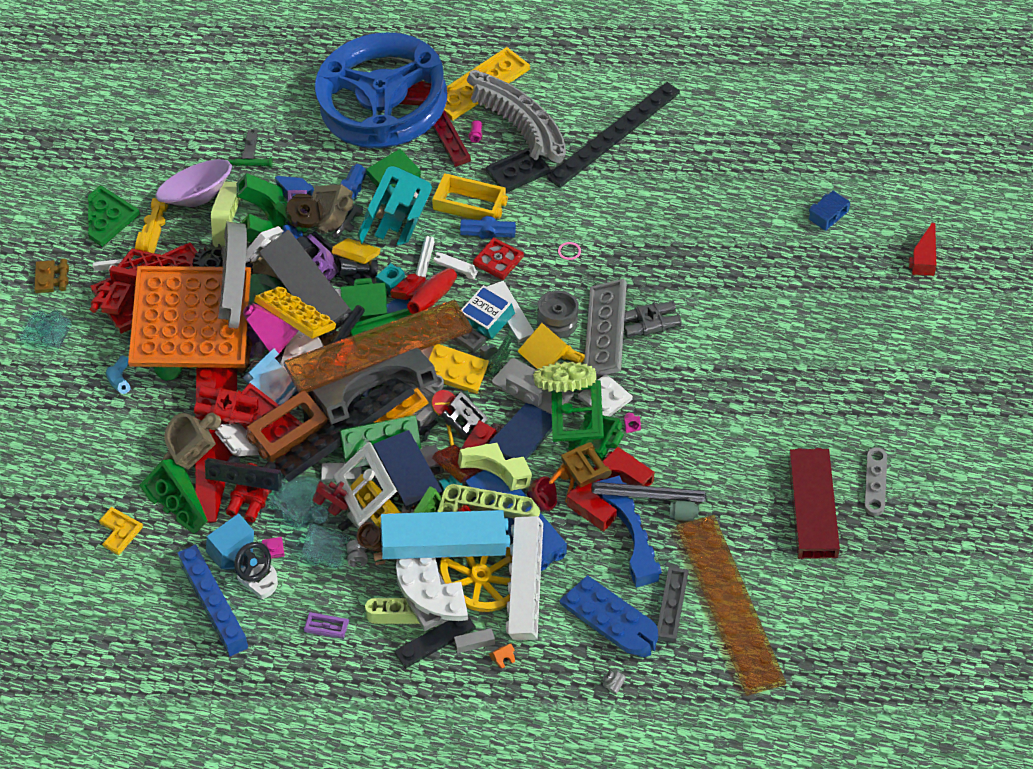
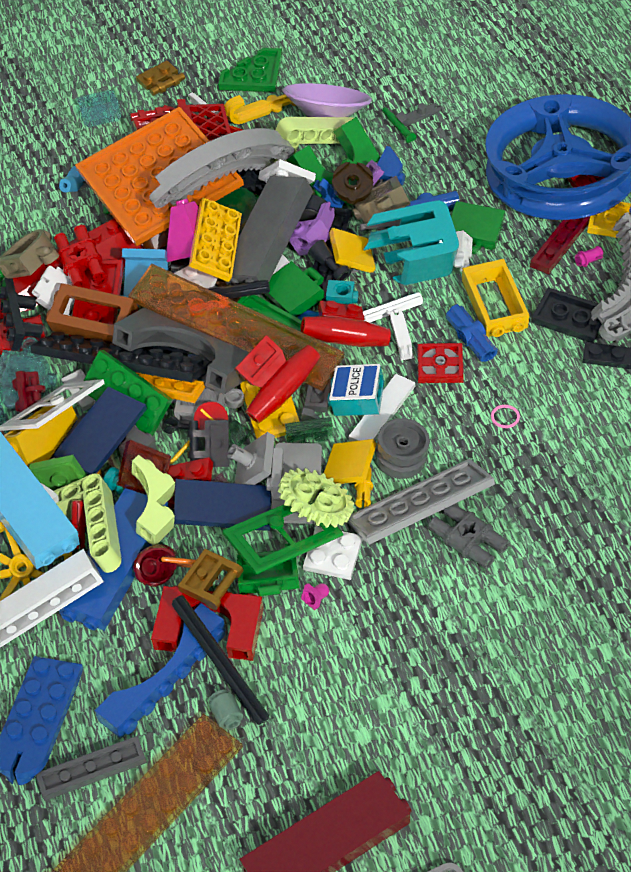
camera: 60 degrees right, 0 degrees up
(449, 344) = (276, 376): none -> red plate
(502, 398) = (254, 460): none -> light grey tile

